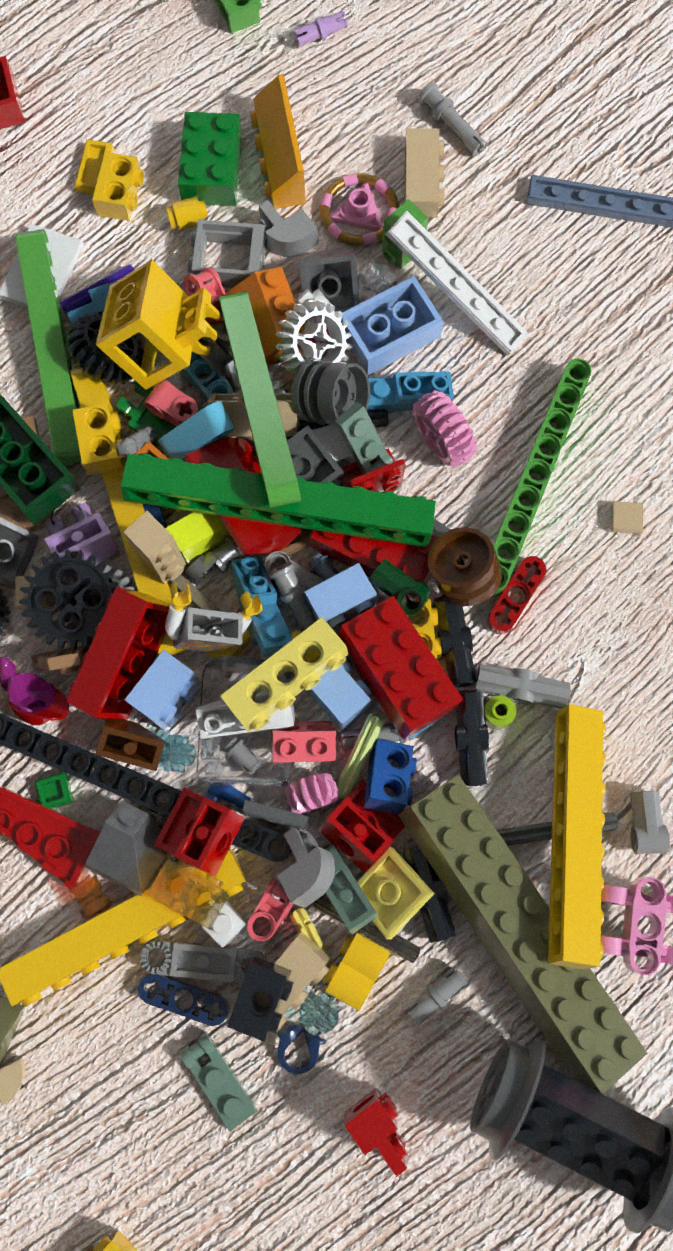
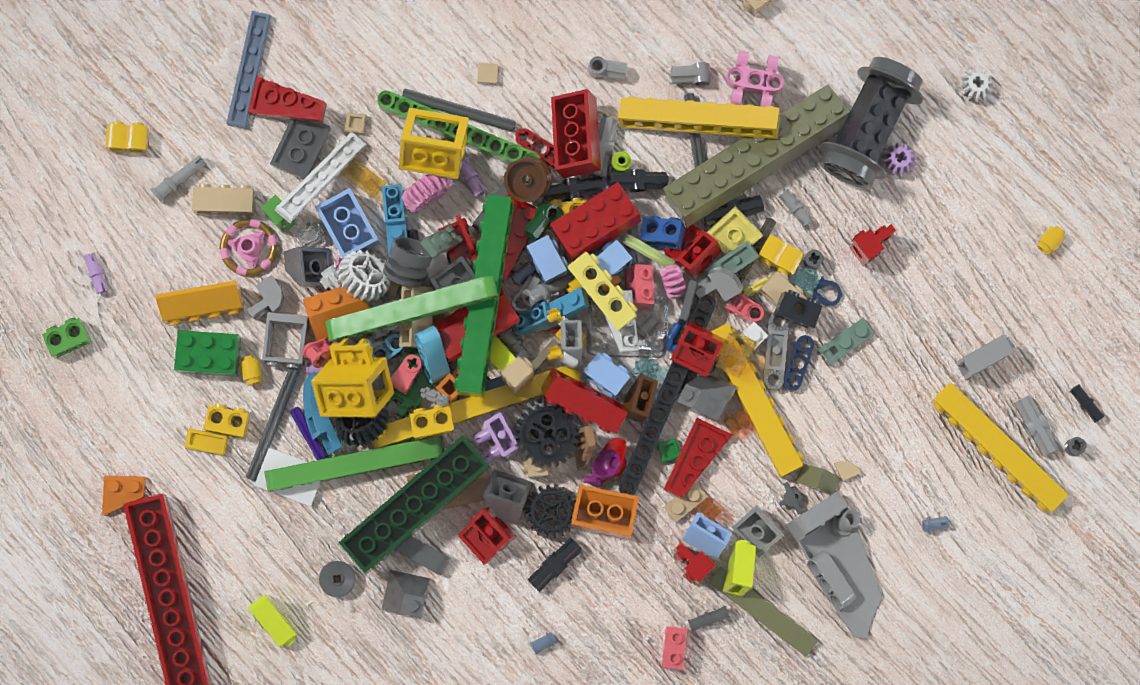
camera: 95 degrees left, 5 degrees up
(33, 71) = (121, 490): none -> orange wing
(114, 244) = (272, 423): none -> dark grey axle
(307, 702) = (615, 281): none -> orange plate
(360, 1029) = (816, 255): none -> dark grey bush
(461, 349) = (363, 178): none -> clear yellow plate
(467, 495) = (471, 178): none -> lavender pin
(496, 419) = (429, 154): none -> yellow piece
(504, 55) = (127, 137): none -> yellow brick
(506, 266) = (300, 147): none -> dark grey plate
(531, 1193) = (907, 159): none -> lavender gear
(540, 639) = (575, 133): none -> red brick
(541, 339) = (355, 123): none -> tan tile
(564, 240) = (277, 101): none -> red wing
(568, 478) = (460, 110): none -> dark grey axle
(646, 695) = (610, 69): none -> light grey piece

